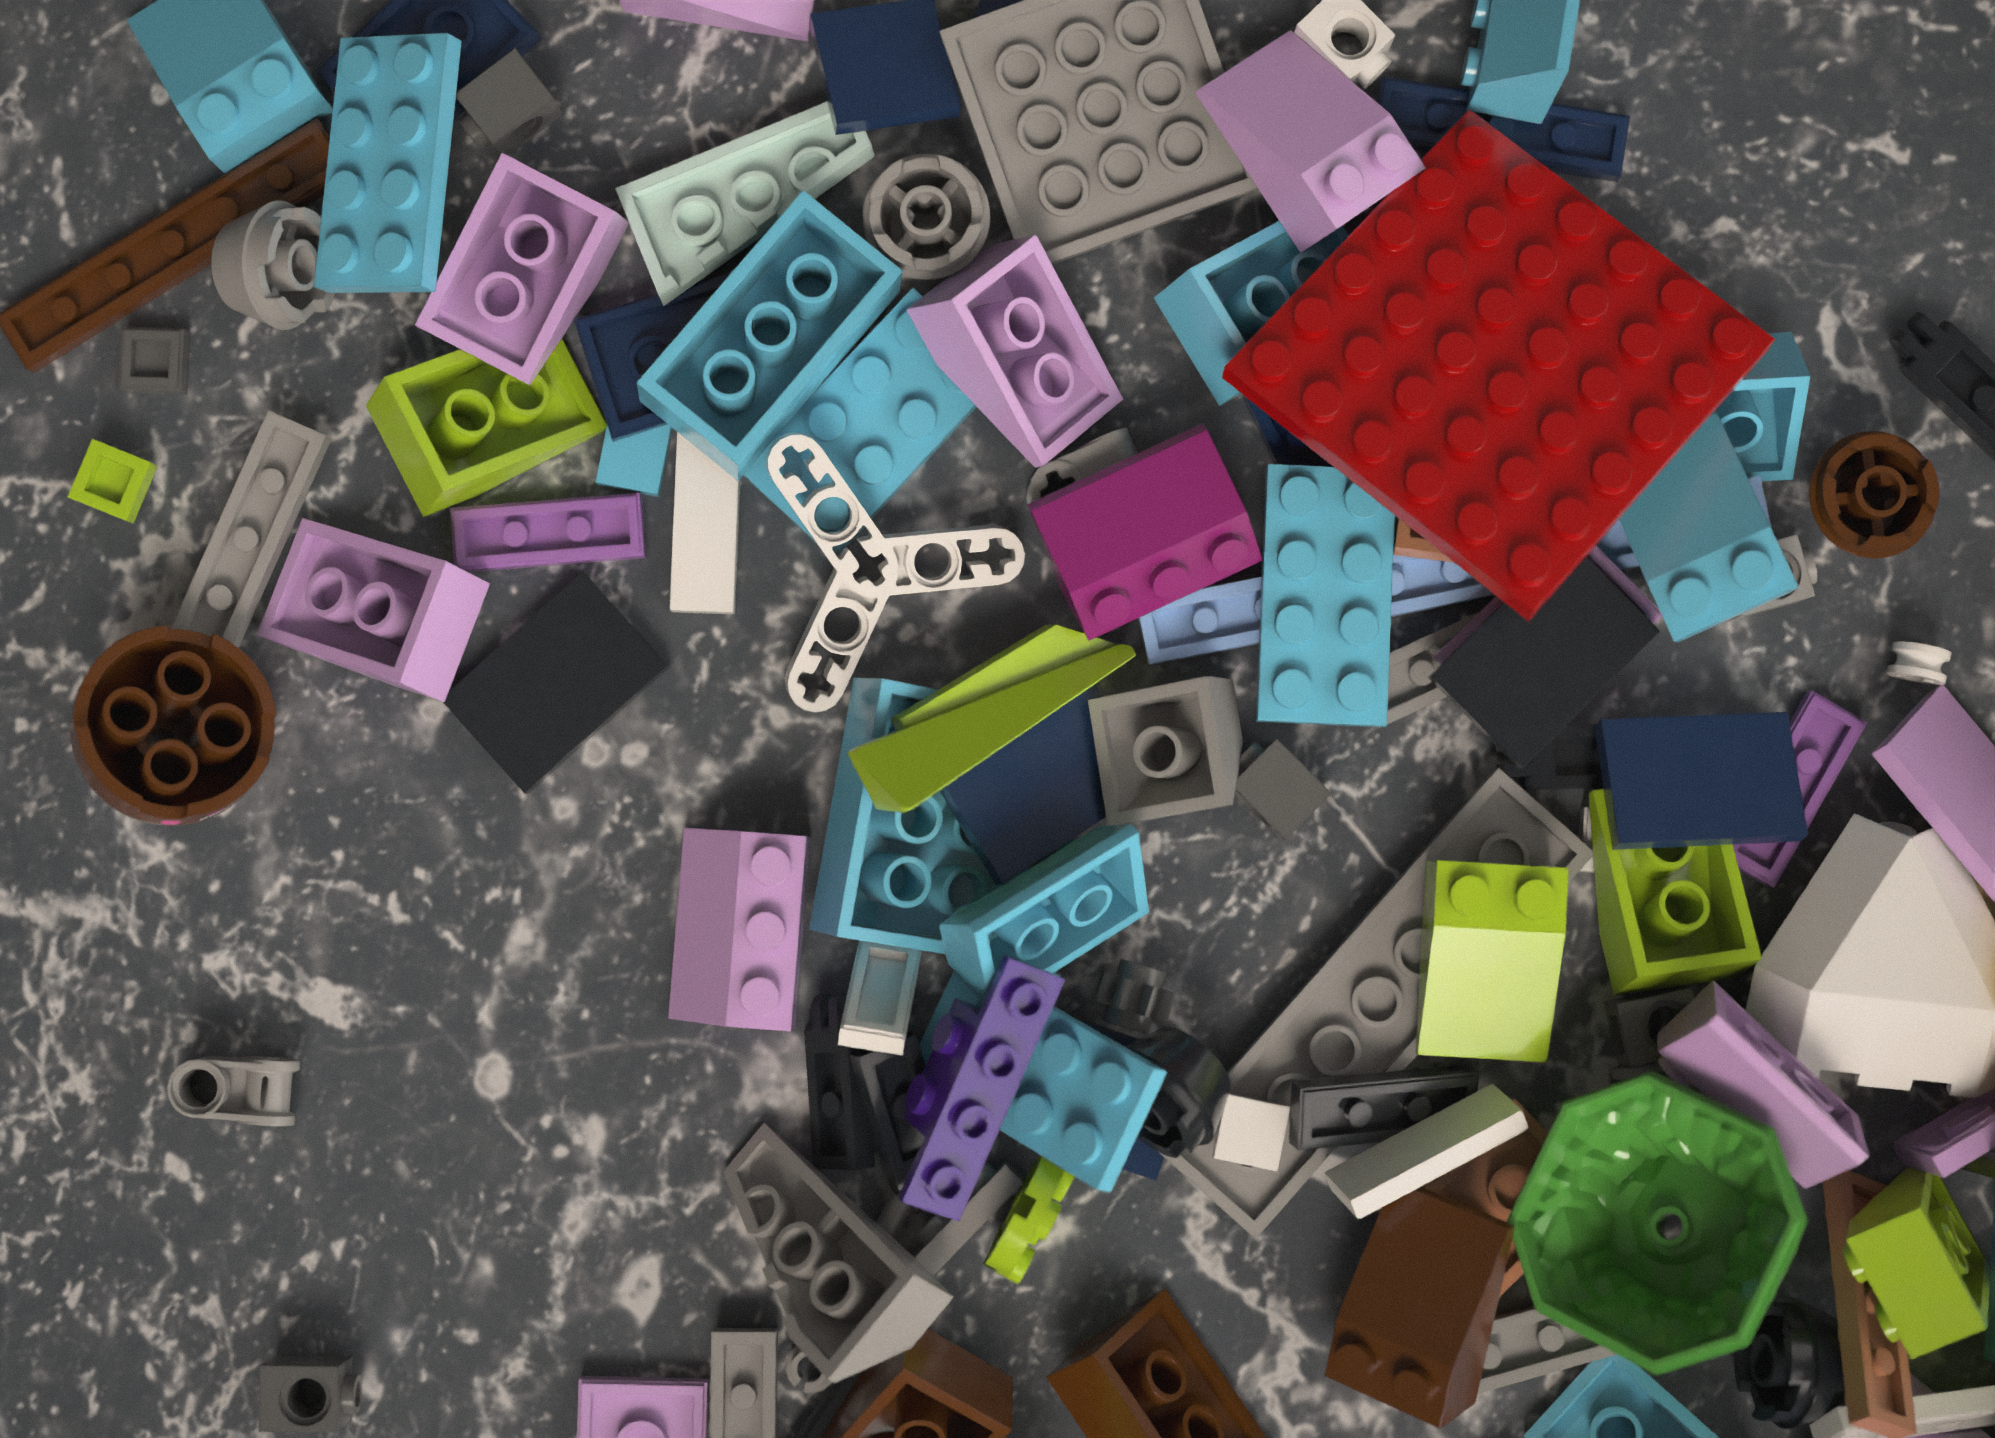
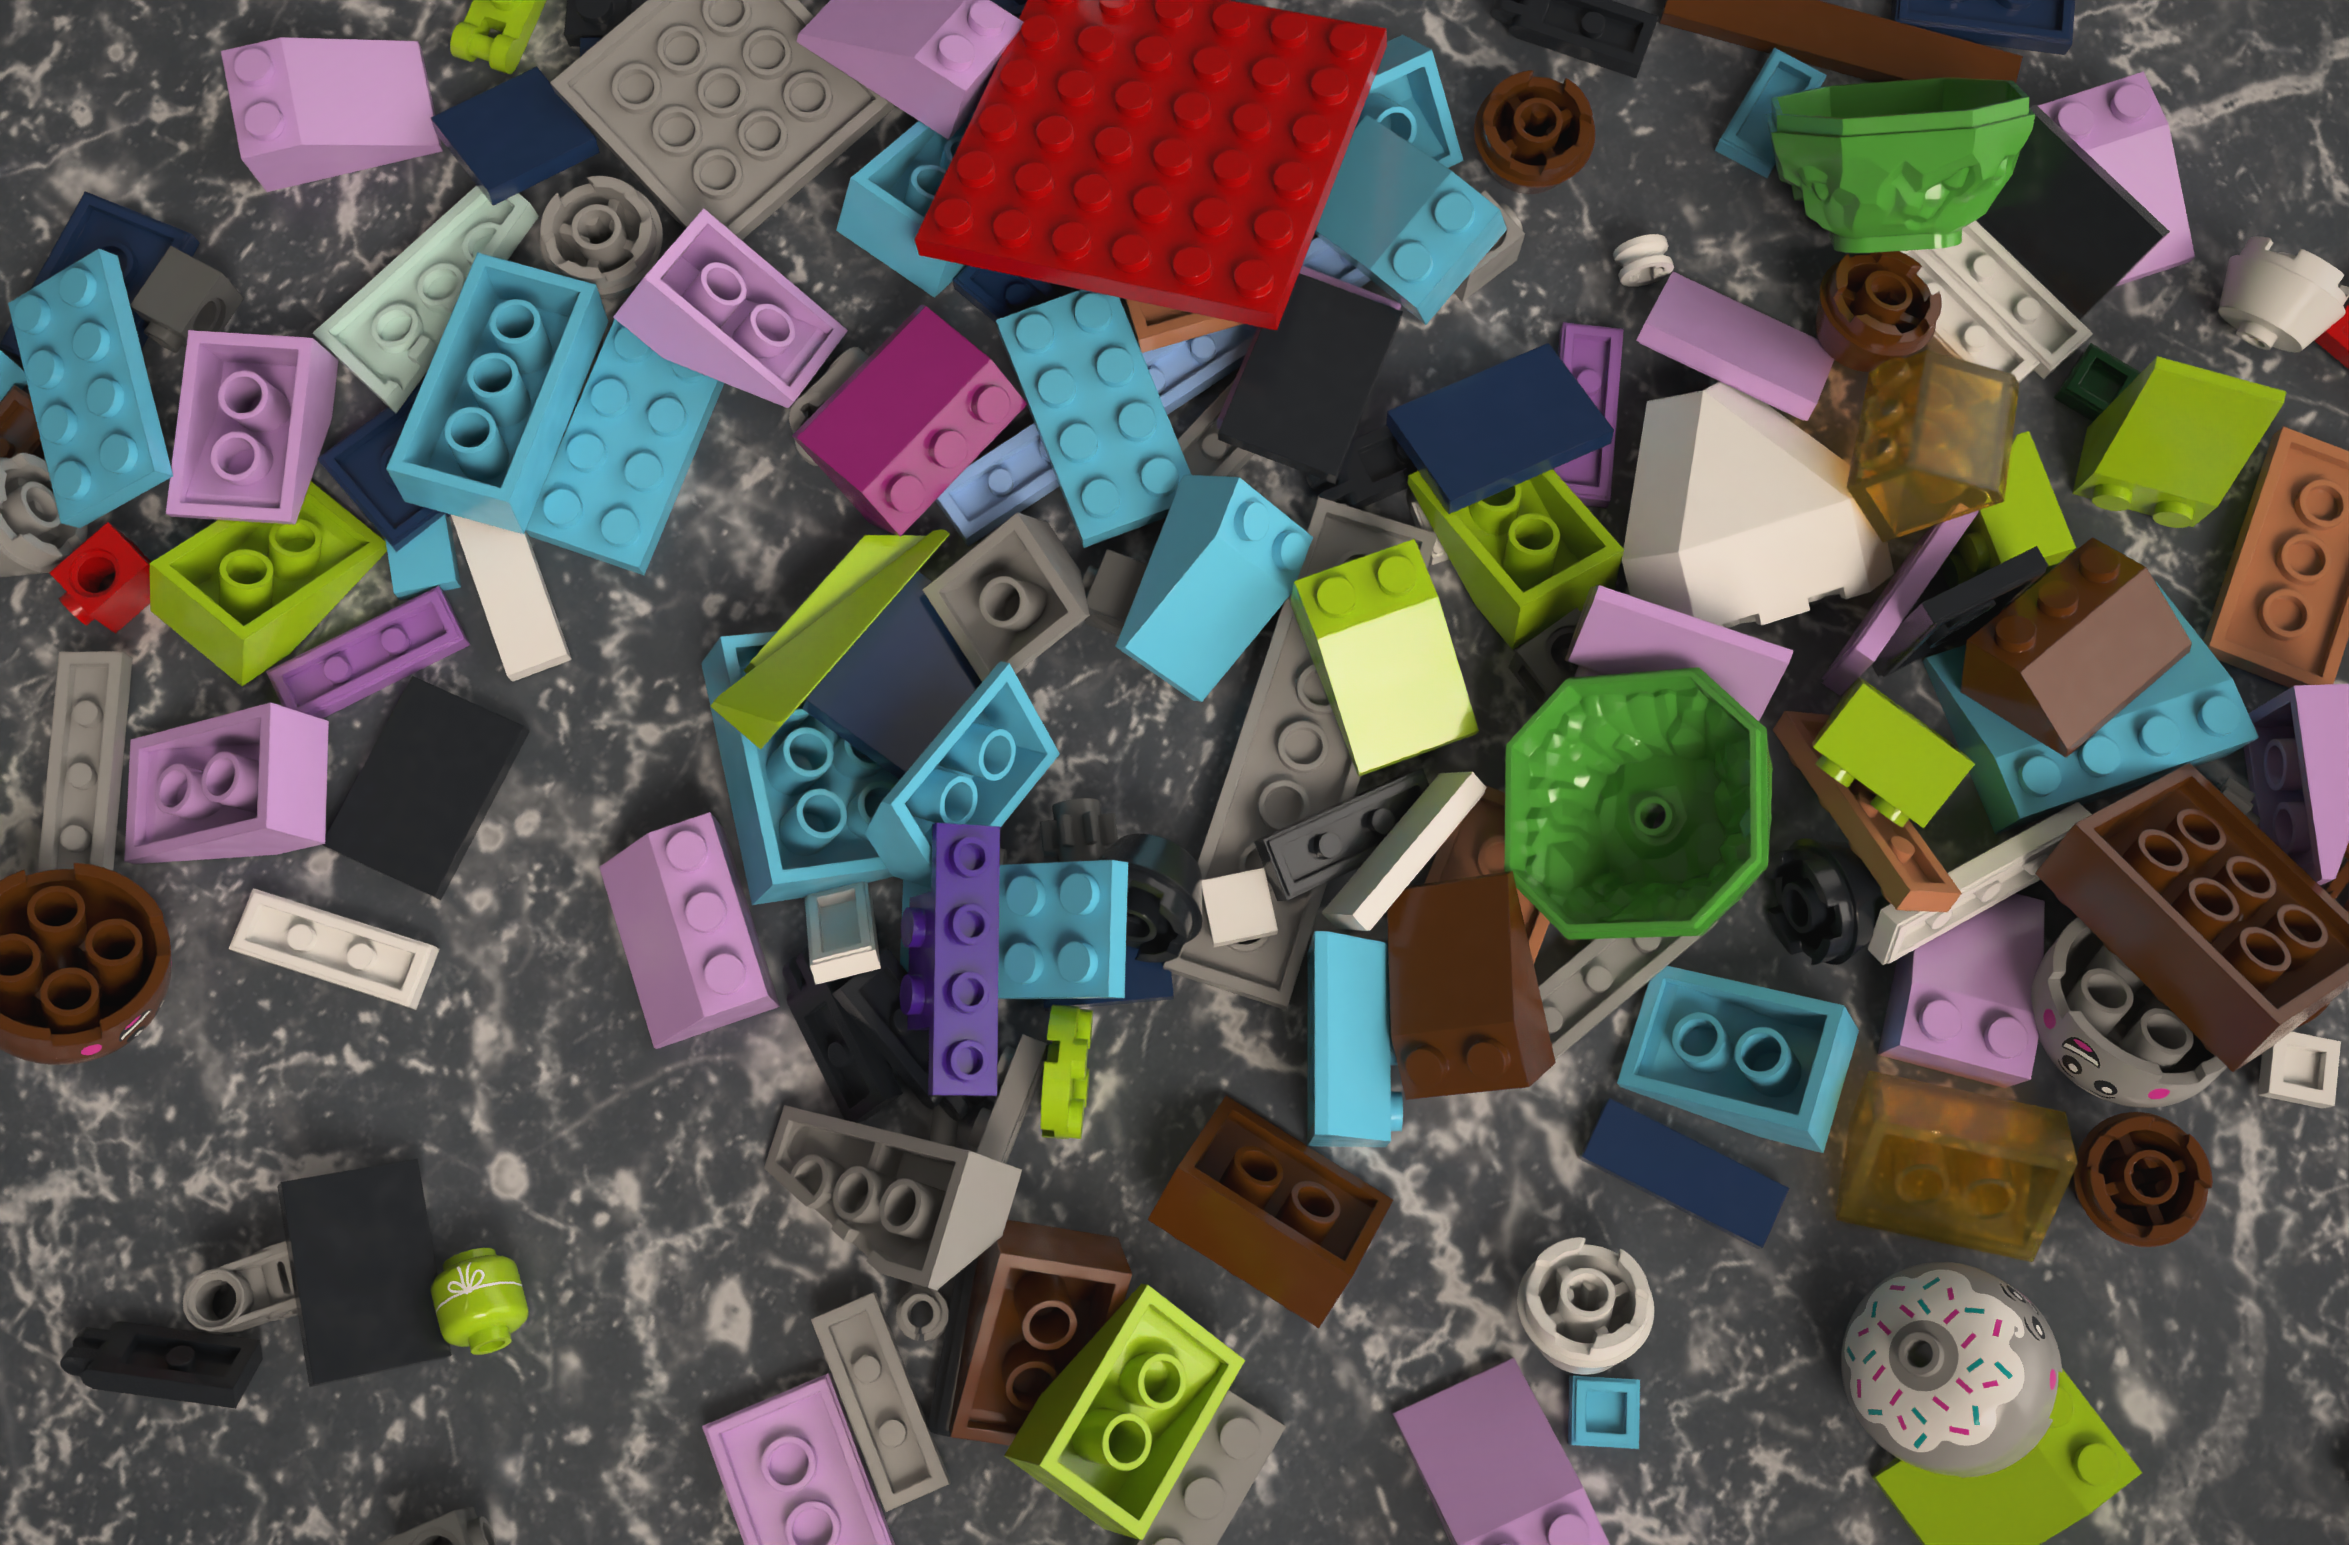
camera: 25 degrees left, 10 degrees down
(131, 1118) = (164, 1363): none -> black hinge
(335, 1115) = (362, 1271): none -> black tile
(365, 361) = (89, 564): none -> red brick
(415, 799) = (334, 948): none -> white tile
(427, 1185) = (479, 1300): none -> lime head
(862, 595) = (702, 555): white piece -> none
(1294, 1302) = (1349, 1043): none -> medium azure slope
(1361, 814) = (1211, 582): none -> medium azure slope

